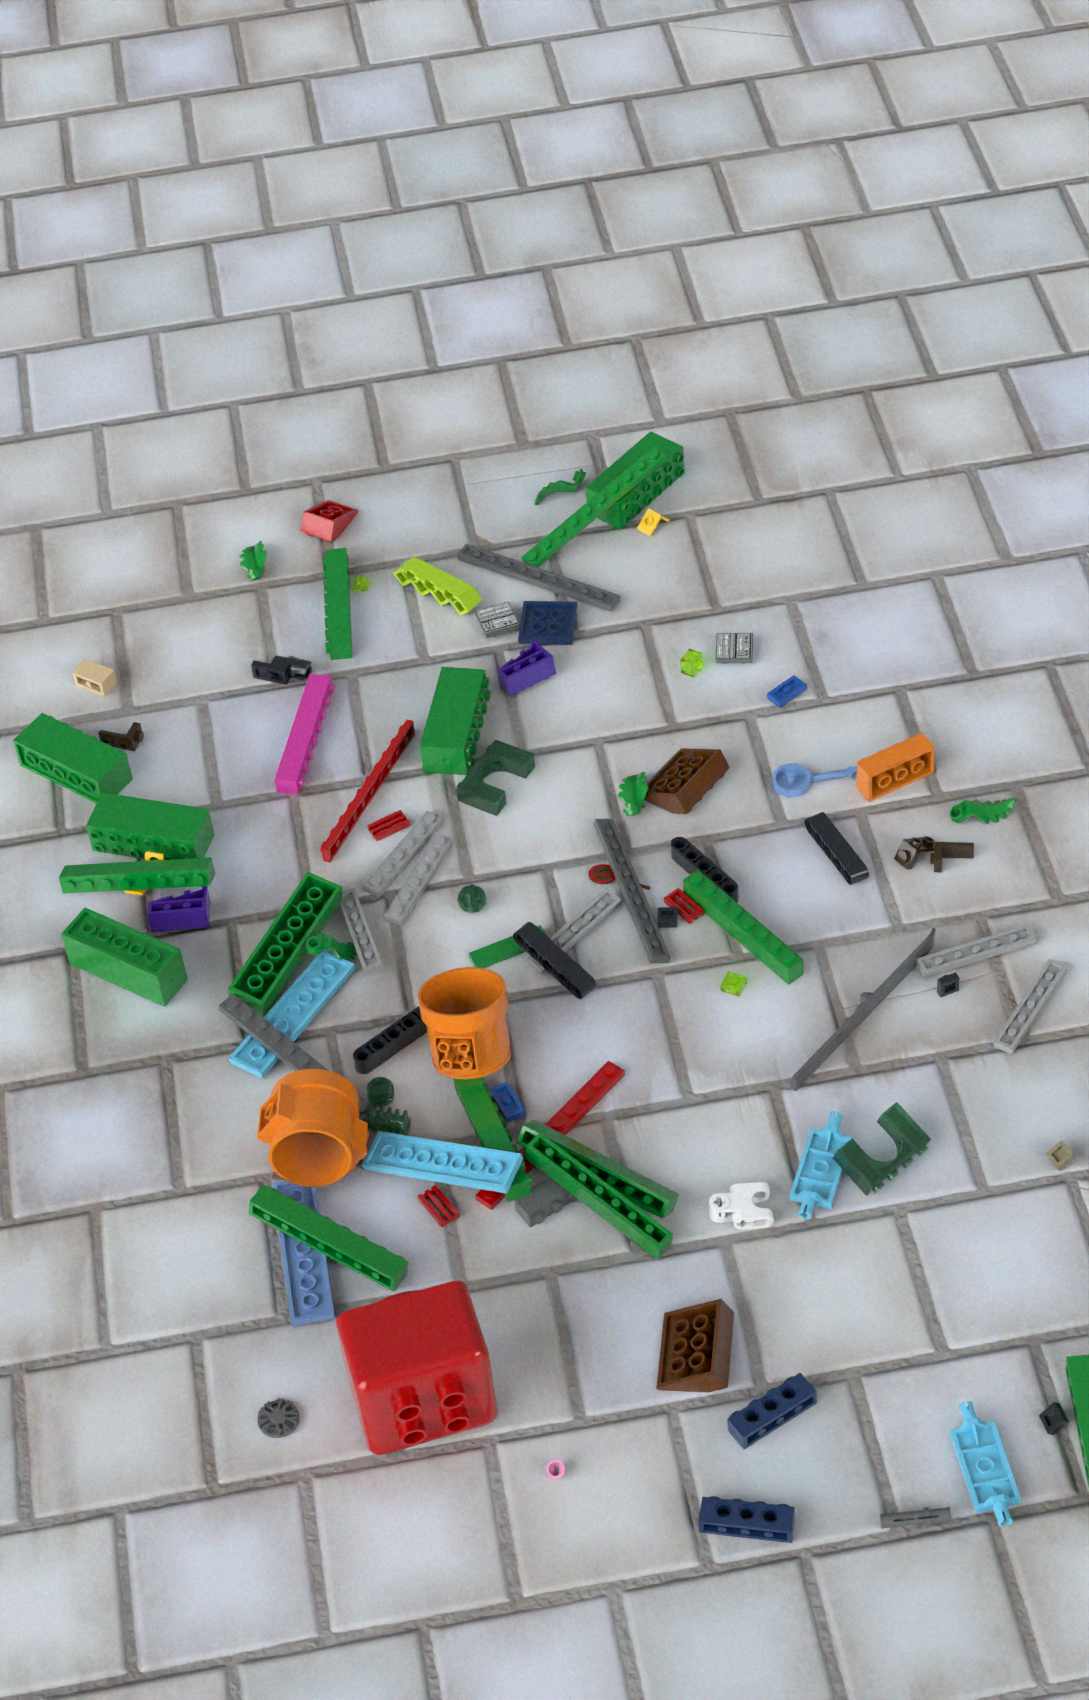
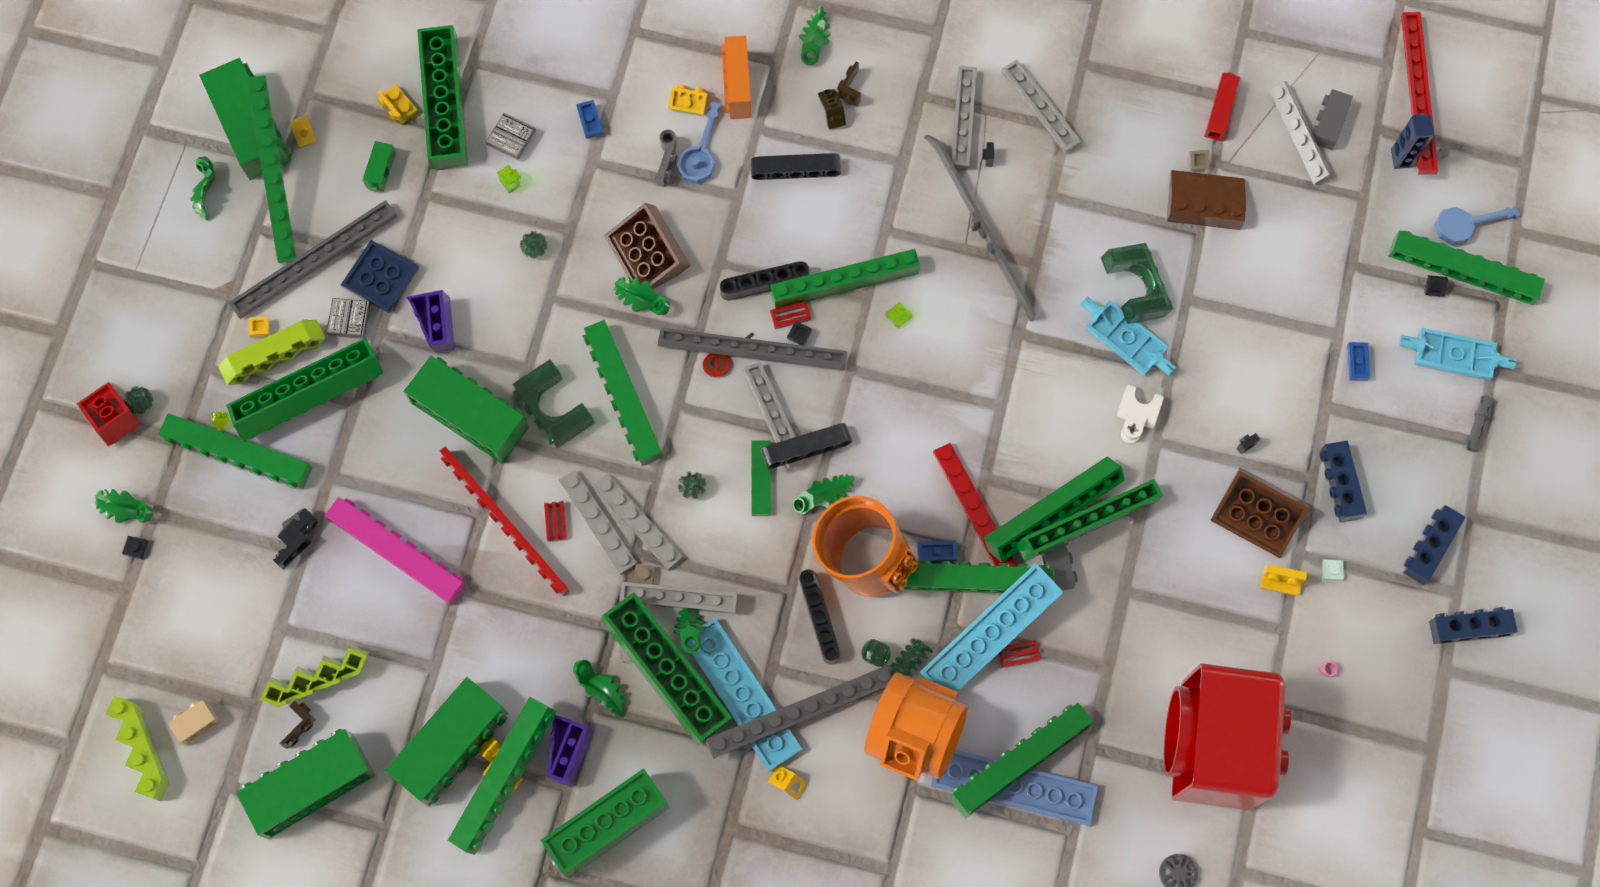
camera: 70 degrees left, 25 degrees up
(53, 659) = (143, 754): none -> lime brick
(171, 732) = (306, 682): none -> lime brick
(225, 584) = (135, 547): none -> black plate
(225, 1072) = (785, 779): none -> yellow bracket
(249, 913) = (600, 687): none -> green plant
(350, 529) = (134, 395): none -> clear green piece
(371, 904) = (644, 574): none -> dark tan plate
(414, 616) = (304, 389): none -> green brick
(457, 570) = (259, 326): none -> yellow plate
(522, 1000) = (823, 494): none -> green plant
(533, 818) = (623, 393): none -> green brick
(630, 1393) = (1282, 579): none -> yellow bracket
(638, 703) = (533, 250): none -> clear green piece
(648, 579) = (379, 166): none -> green brick
(668, 1439) = (1332, 570): none -> light aqua plate
(687, 1618) = (1504, 625): none -> dark blue brick
(715, 567) = (398, 104): none -> yellow bracket
(739, 587) = (442, 97): none -> green brick
(765, 1311) = (1247, 442): none -> black plate
(774, 758) = (669, 157): none -> flat silver plate
(852, 746) = (688, 100): none -> yellow bracket
(919, 1378) = (1358, 361): none -> blue plate
(1019, 1179) = (1206, 200): none -> reddish brown slope

